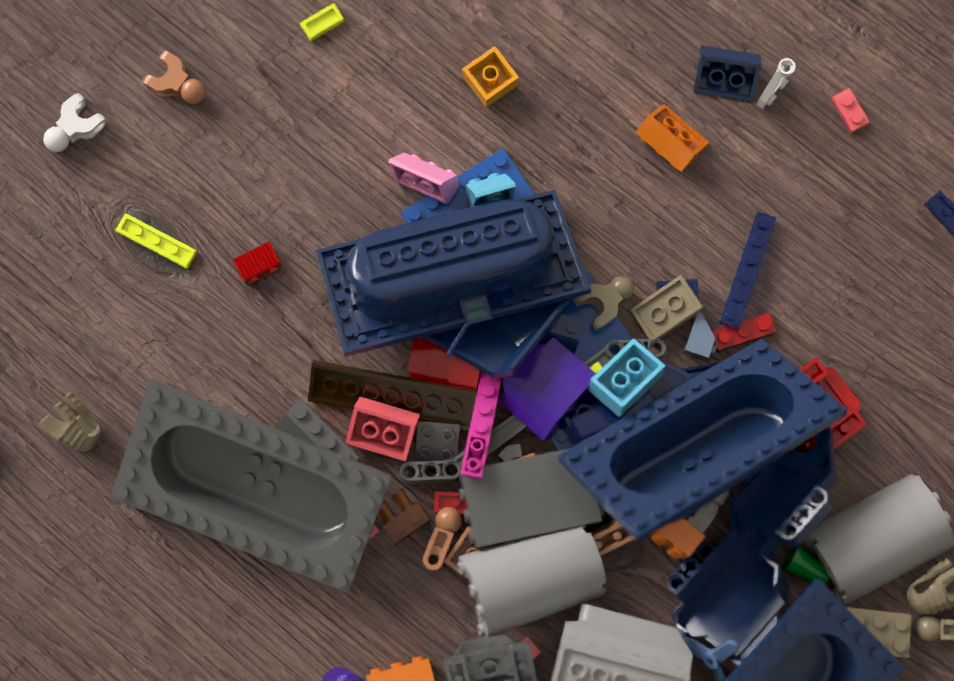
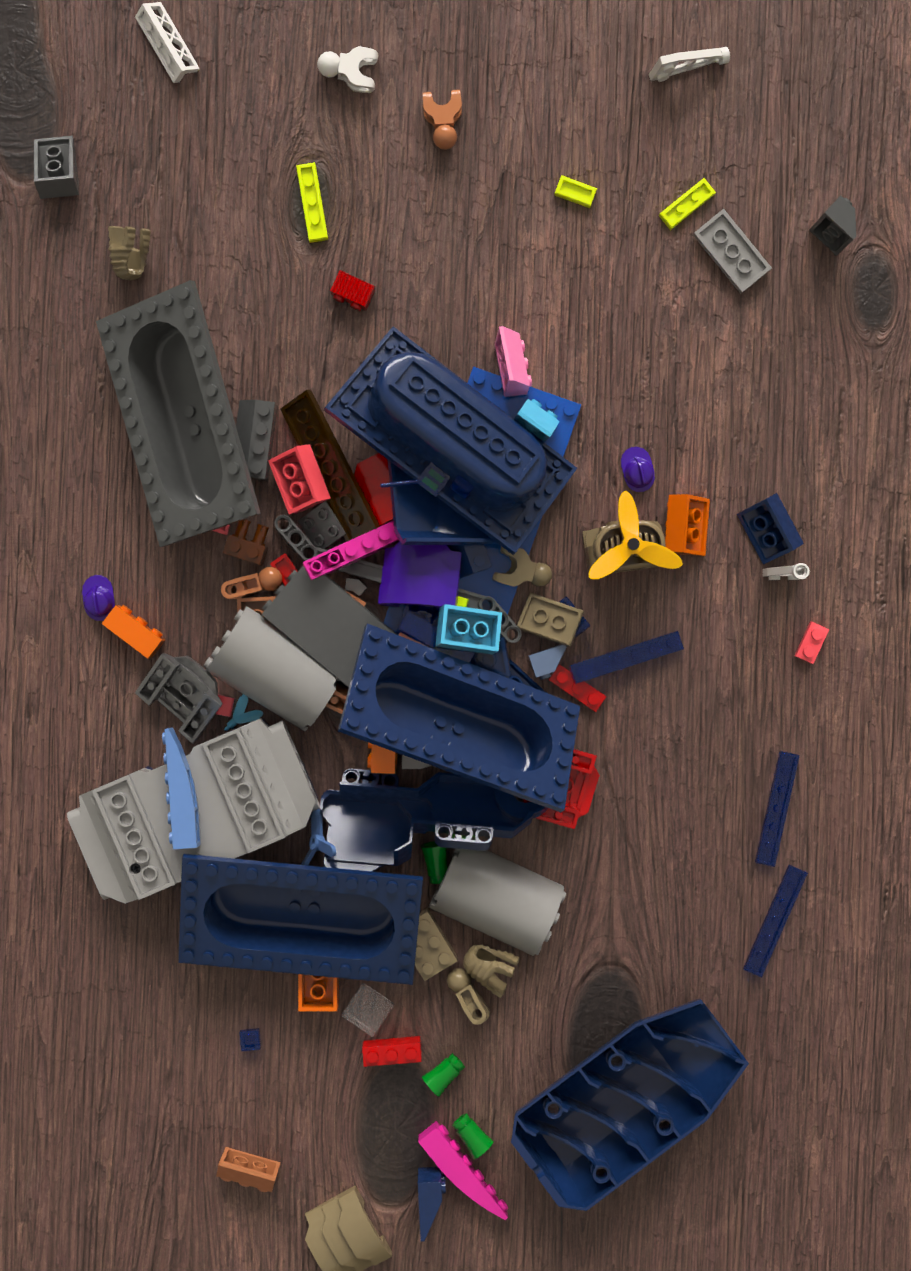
camera: 55 degrees right, 10 degrees up
(490, 76) = (628, 352): light orange brick -> none
(547, 643) = (240, 717): none -> medium azure piece
(593, 143) = (637, 469): none -> dark purple piece
(653, 195) = (627, 544): none -> brick

